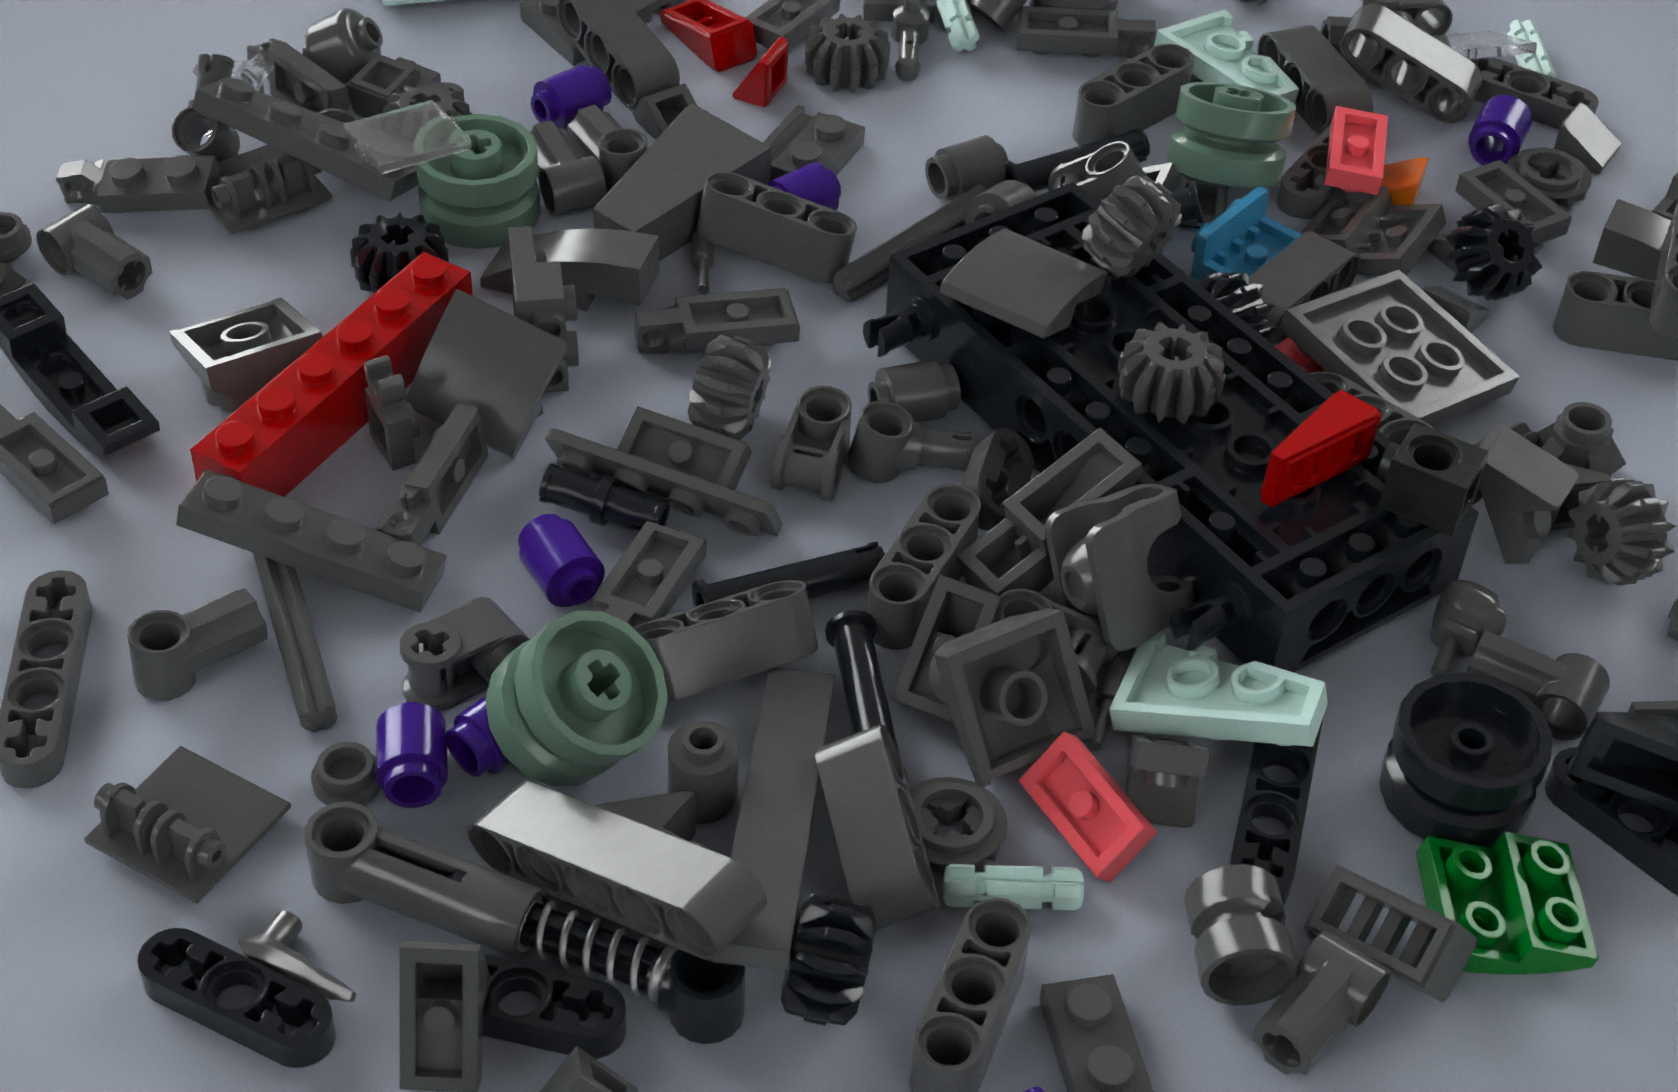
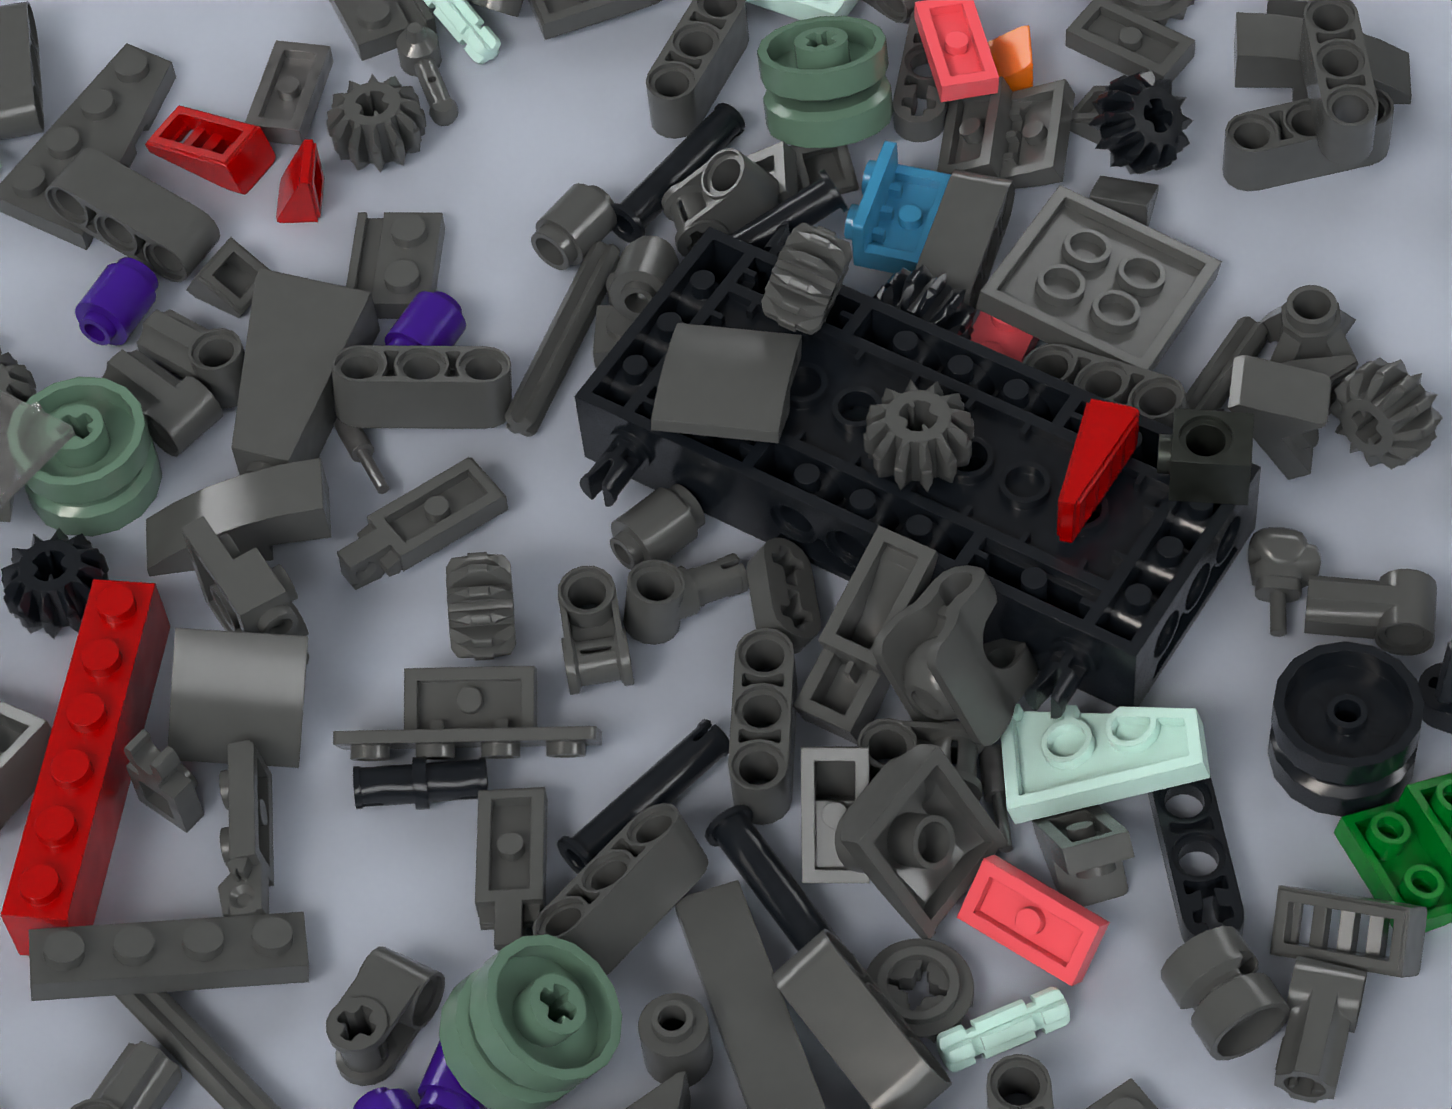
camera: 15 degrees left, 10 degrees up
(560, 560) = (418, 871): dark purple brick -> none

